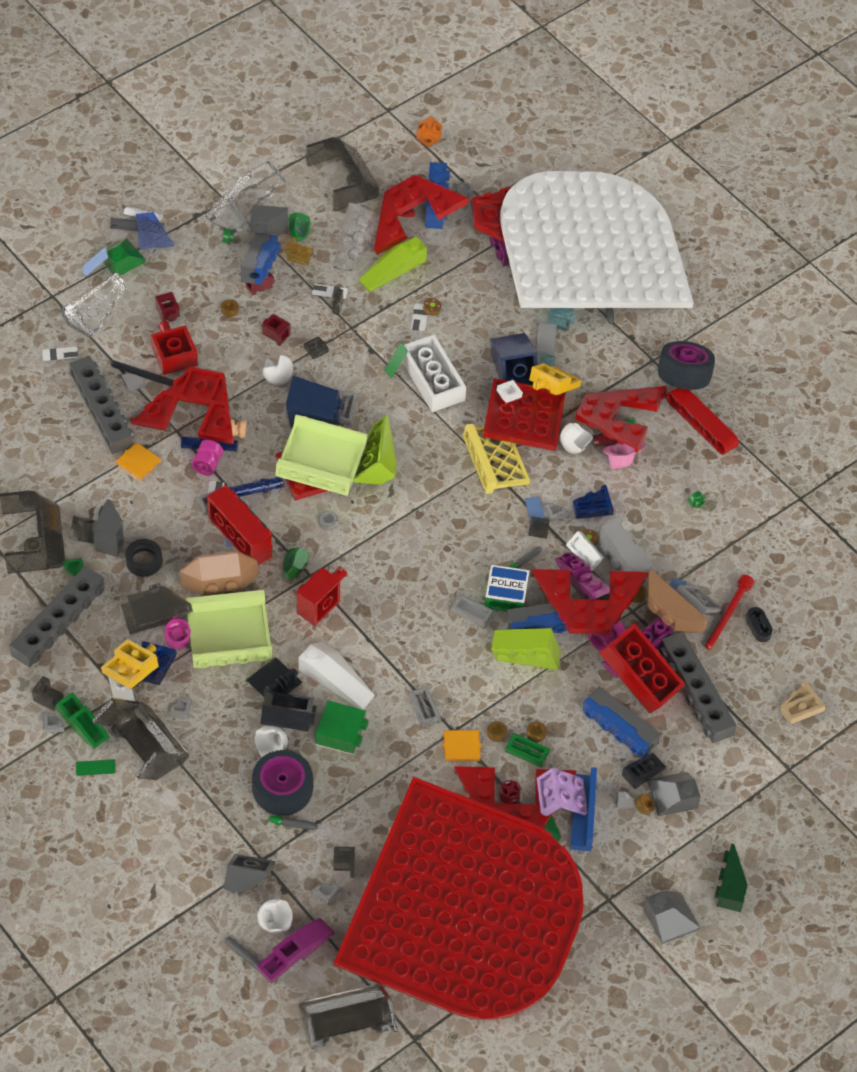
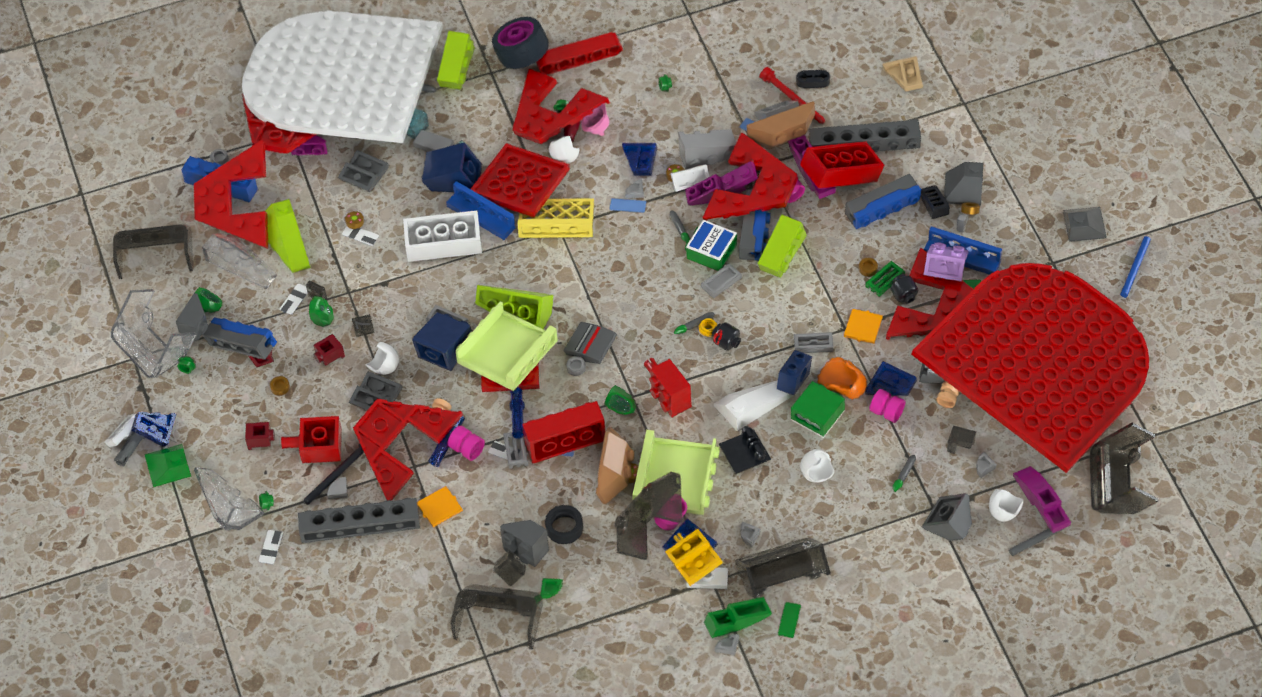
camera: 65 degrees left, 0 degrees up
(45, 695) = (695, 641): clear smoke panel -> none
(60, 607) = (634, 650): dark grey brick -> none
(94, 262) = (170, 485): medium blue sticker -> none
(102, 334) = (266, 500): none -> green plate
(243, 378) = (374, 388): none -> dark grey slope
(282, 782) = (865, 466): wheel -> none
(288, 711) = (777, 450): black window -> none
(298, 253) = (236, 310): clear yellow bracket -> none
(316, 310) = (320, 311): none -> green rock
(357, 523) = (590, 342): none -> dark grey slope
(364, 785) = (884, 404): none -> dark pink wheel
(374, 694) = (794, 372): none -> dark blue brick
(382, 739) = (840, 375): none -> orange piece
(396, 360) = (414, 260): green sticker -> none
(396, 781) = (891, 380): none -> clear blue wing
(400, 629) = (726, 336): none -> black head
(409, 609) = (707, 323): none -> yellow plate
(411, 601) = (691, 324): none -> dark grey piece
(429, 131) = (135, 163): orange brick -> none
(477, 396) = (489, 214): none -> blue fence
(491, 297) = (363, 171): none -> dark grey slope
(497, 731) = (858, 295): pearl gold tile -> none
(507, 788) = (924, 298): dark red wheel -> none
(509, 391) = (495, 179): white plate -> none
(515, 767) = (904, 288): none -> black head
(539, 527) = (648, 206): clear smoke tile -> none
(553, 379) = (492, 145): yellow plate -> none
(633, 979) = (1135, 266): none -> blue bar
(647, 324) = (455, 60): none -> lime wedge
(734, 884) = (1066, 169): dark green slope -> none

